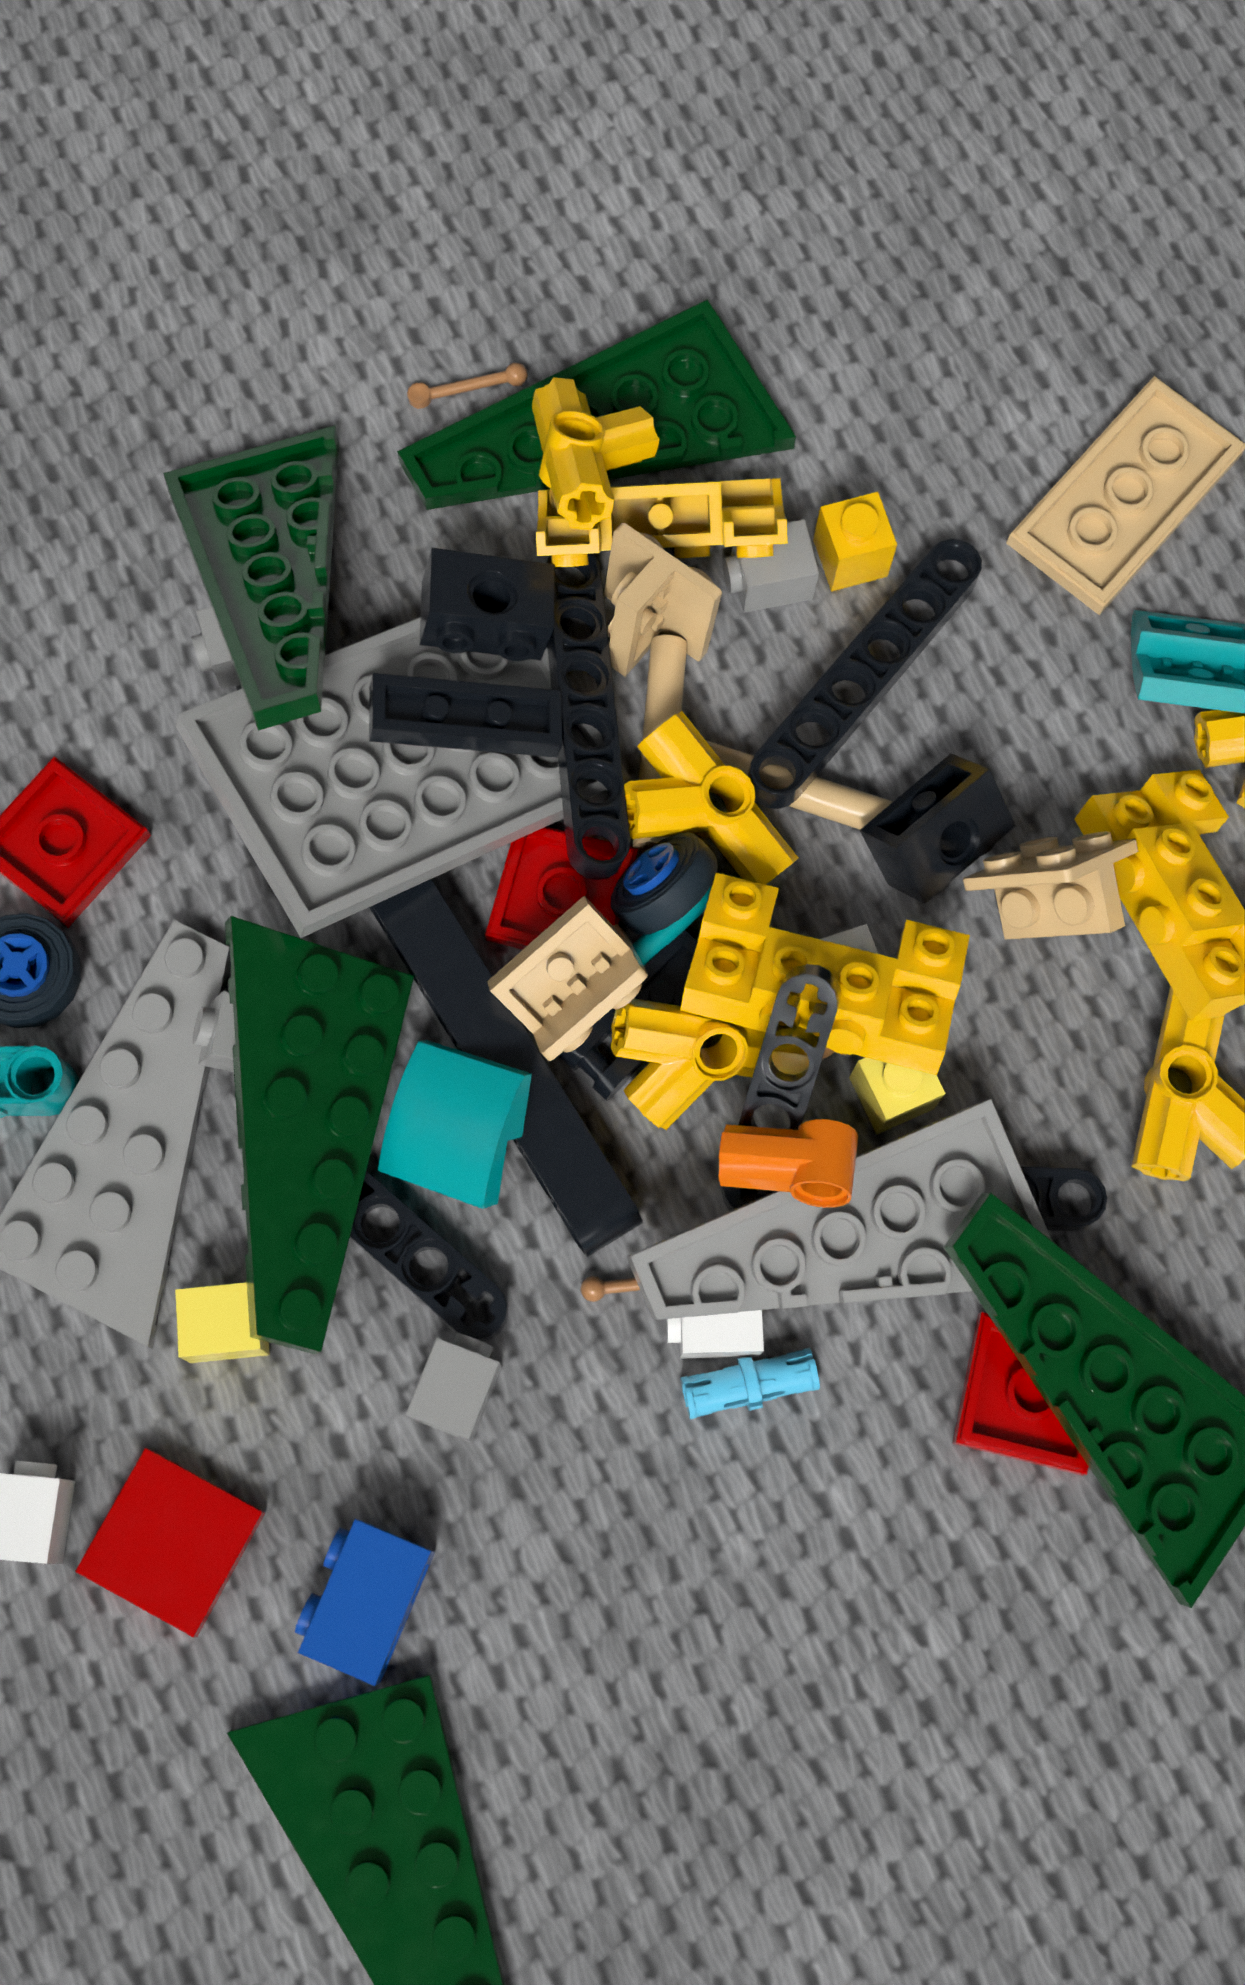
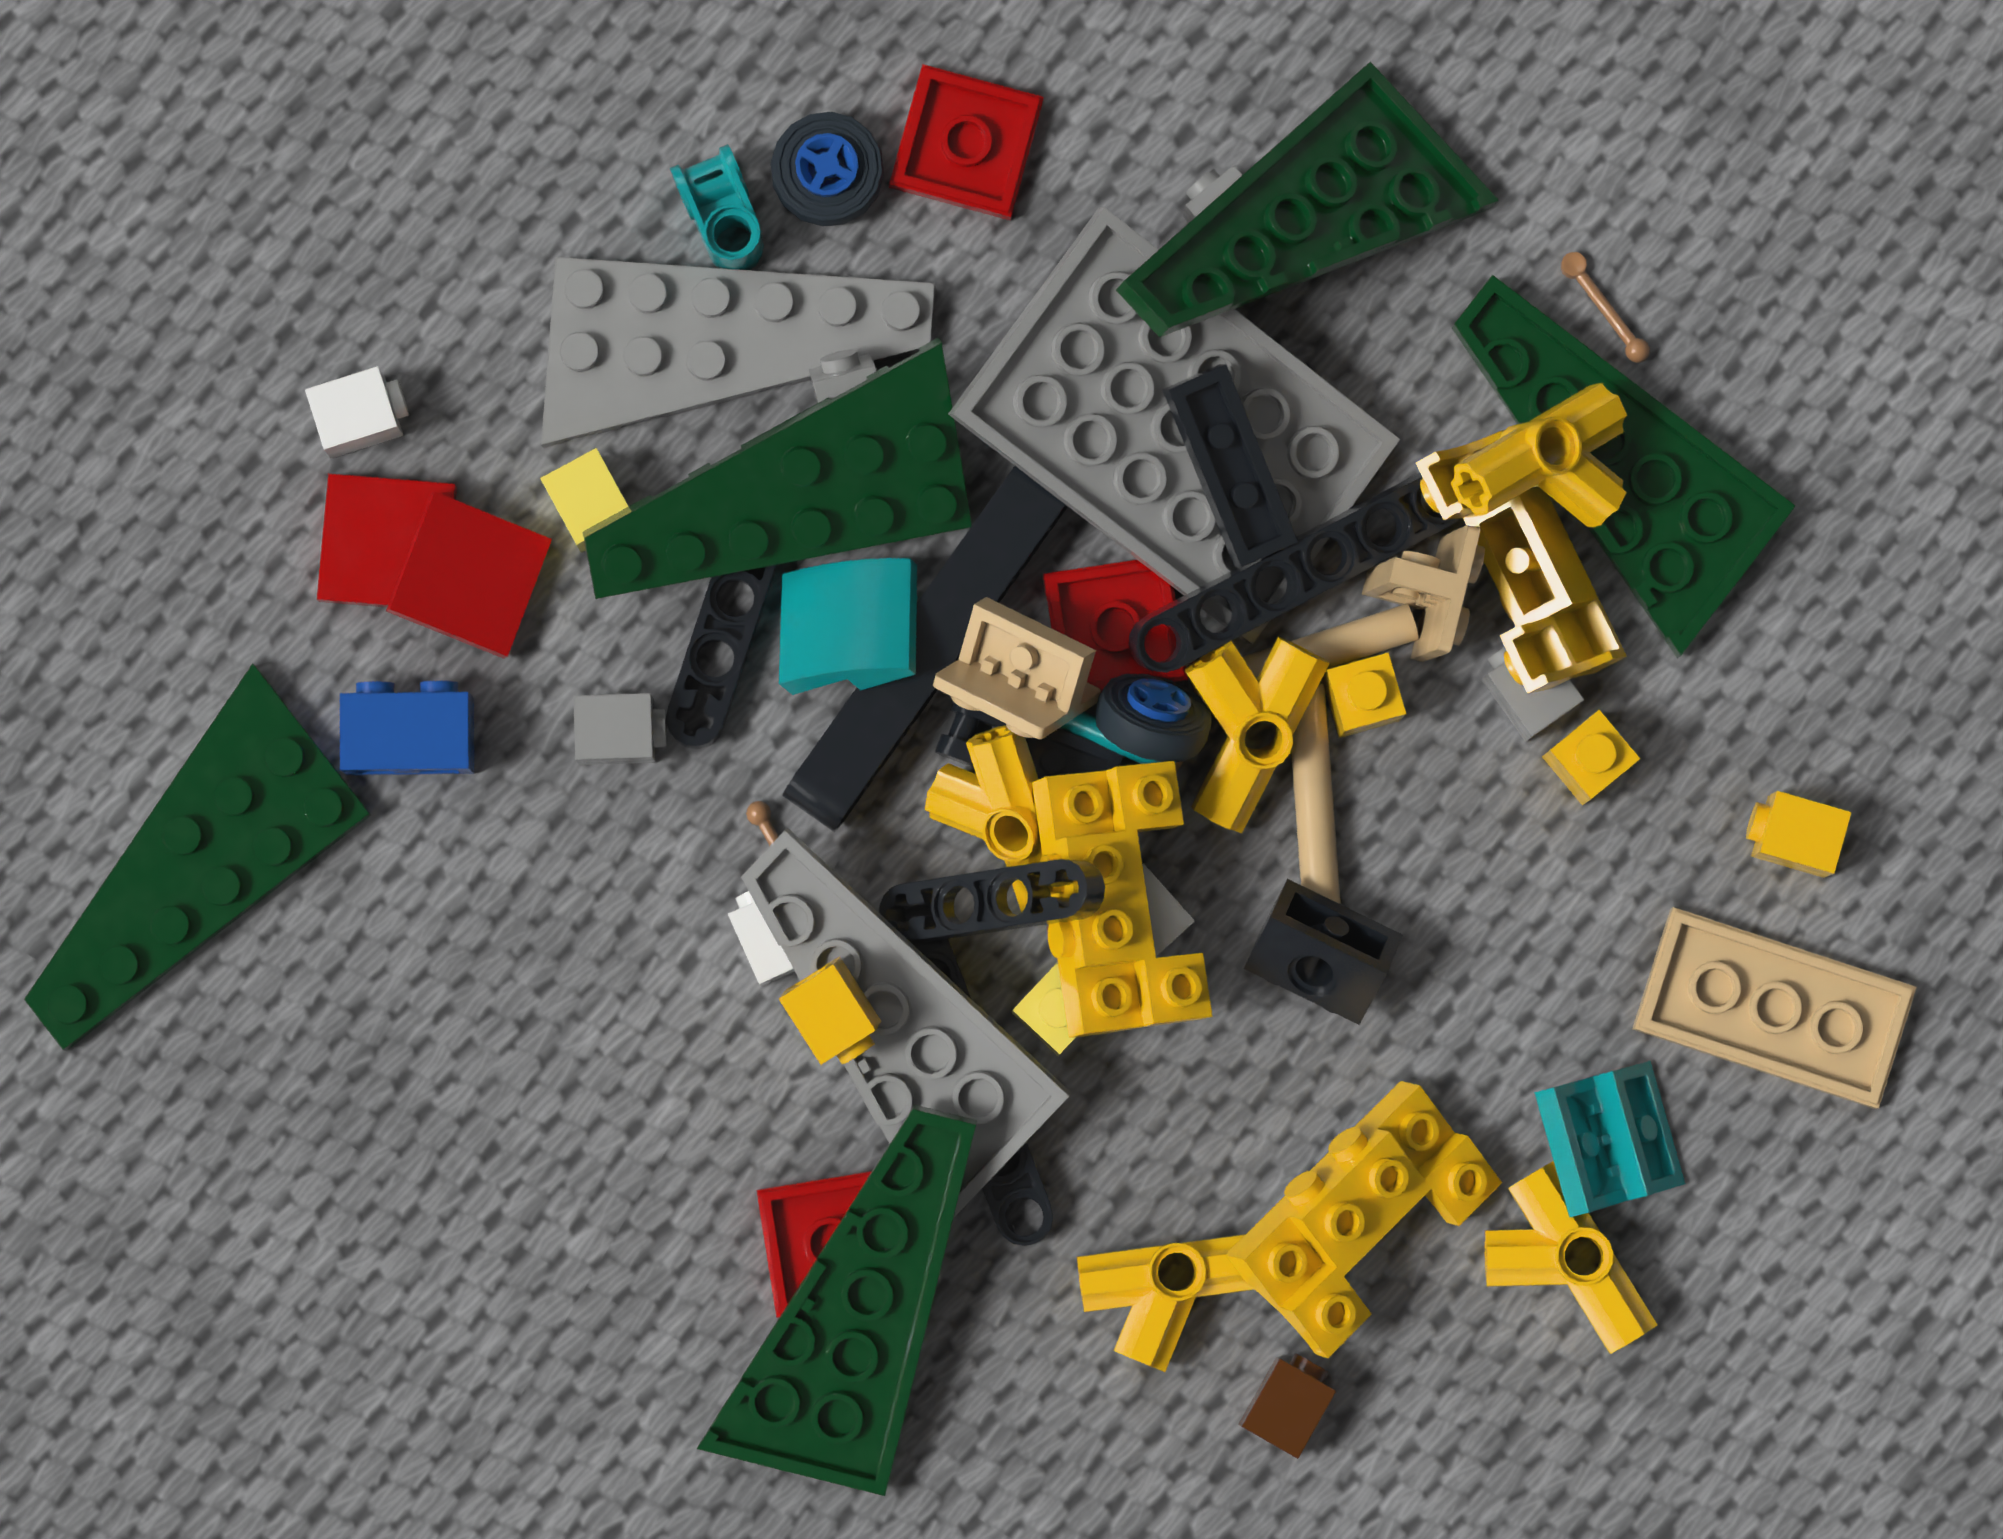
camera: 65 degrees right, 10 degrees up
(239, 1471) = (469, 575): none -> red tile
(514, 589) = (1383, 457): black brick -> none
(721, 700) = (1363, 695): none -> yellow brick
(750, 1383) = (731, 987): medium azure pin -> none
(807, 1162) = (930, 950): orange piece -> none
(828, 1285) = (832, 1013): none -> yellow brick
(869, 673) = (1457, 831): black beam -> none
(989, 408) = (1798, 833): none -> yellow brick
(1056, 887) = (1309, 1080): tan bracket -> none

